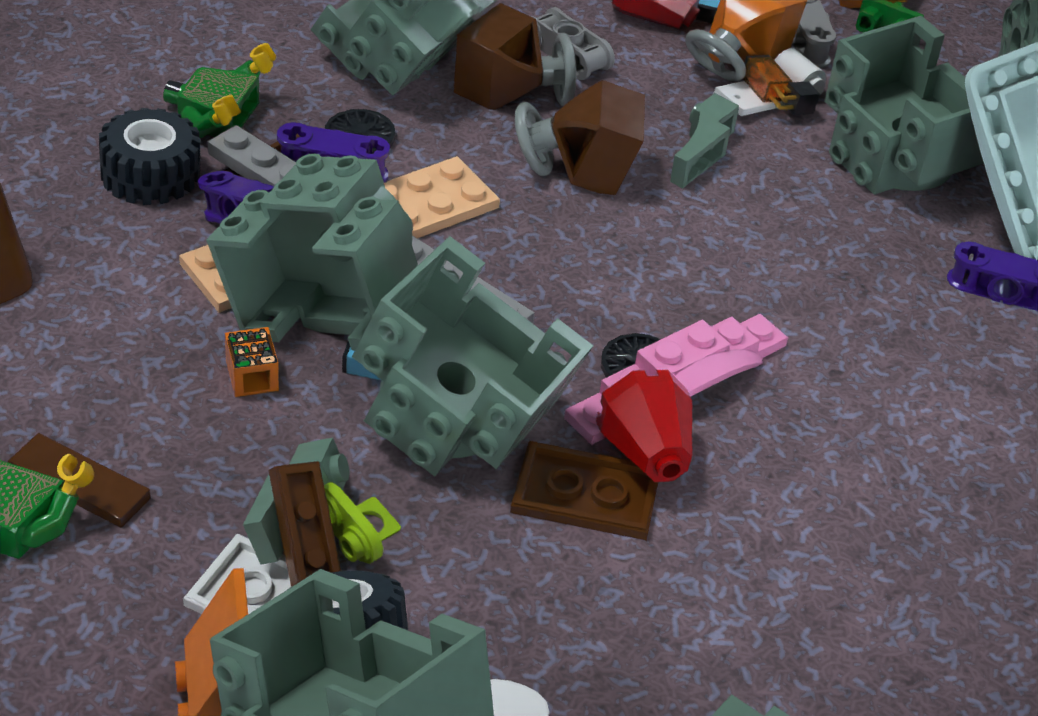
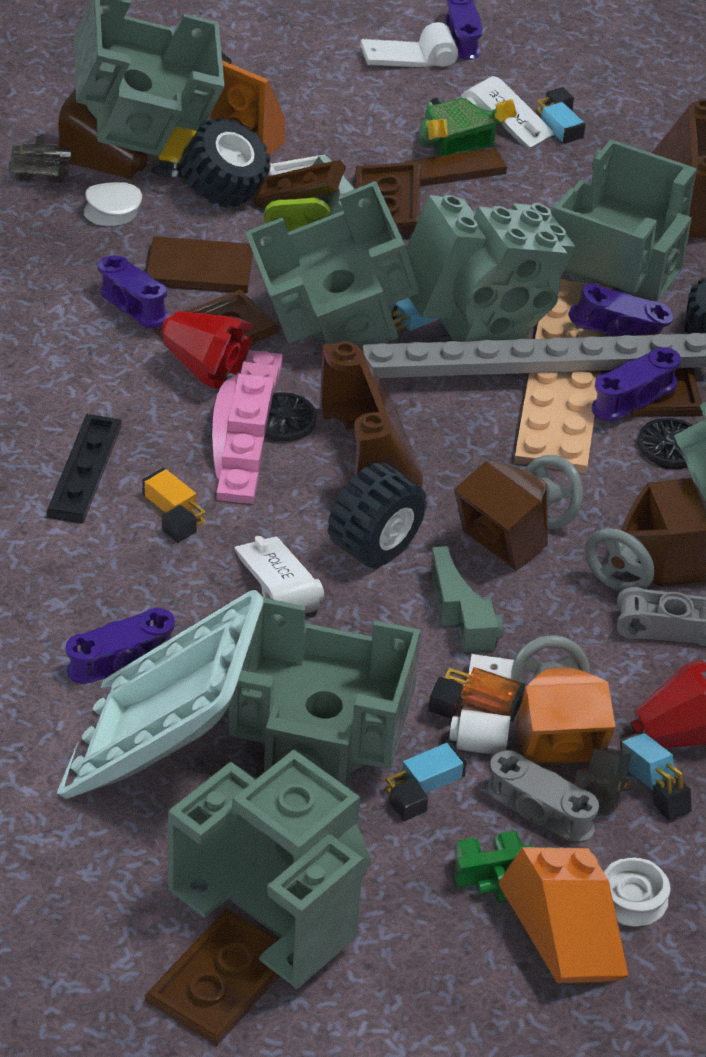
camera: 135 degrees right, 0 degrees up
(124, 242) = (629, 221): none -> sand green piece
(206, 489) = (400, 189): none -> reddish brown tile
(509, 571) = (200, 264): none -> reddish brown tile
(632, 242) = (361, 402): none -> reddish brown windscreen
(639, 561) = (133, 291): none -> dark purple piece
(705, 196) = (377, 515): none -> black wheel
(815, 248) = (281, 573): none -> white door
(832, 353) = (176, 501): none -> piece
(876, 446) = (84, 469): none -> black tile

